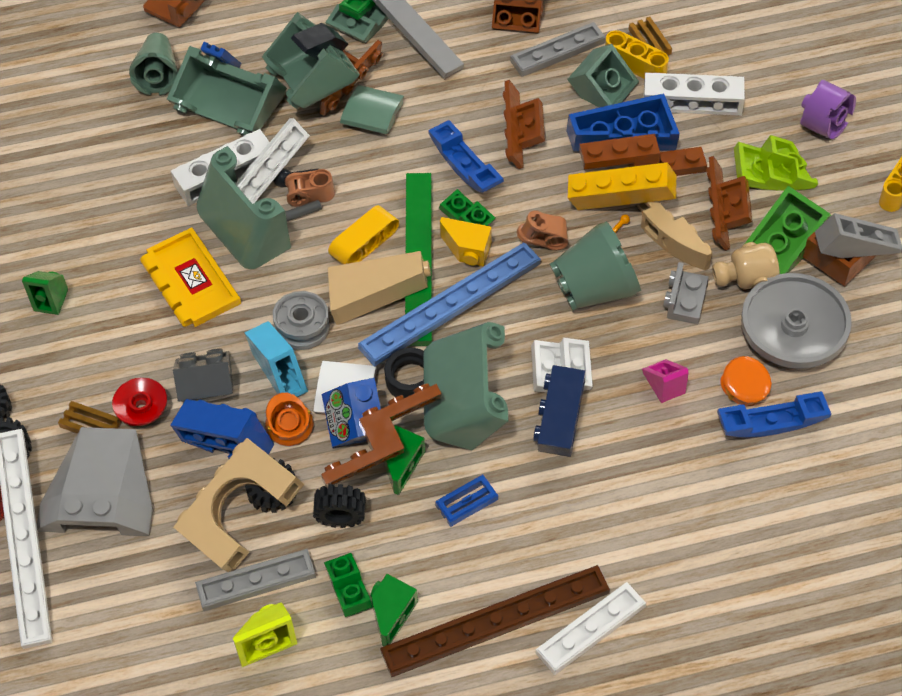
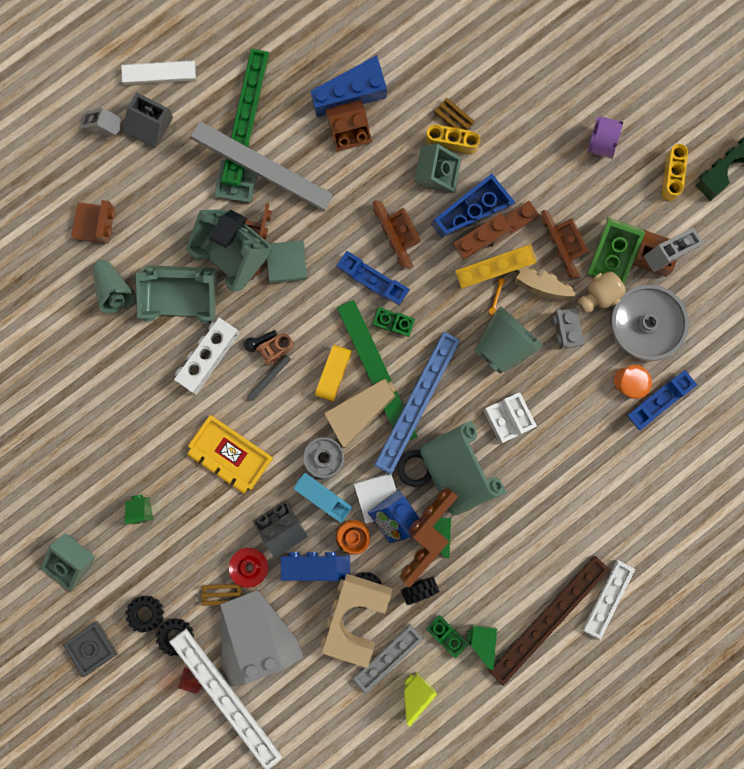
camera: 25 degrees left, 25 degrees up
(221, 54) = (158, 265): blue tile -> none
(247, 230) = (255, 410): sand green windscreen -> none
(272, 160) = (240, 343): white tile -> none
(466, 240) = (405, 348): yellow slope -> none
(470, 509) = (484, 557): blue tile -> none
(547, 231) = (454, 318): nougat piece -> none
(557, 49) = (392, 152): light grey tile -> none
(560, 410) = (528, 458): dark blue brick -> none
(667, 379) = (581, 399): dark pink slope -> none
(698, 92) = (481, 170): white brick -> none
(773, 165) = (582, 196): lime slope -> none

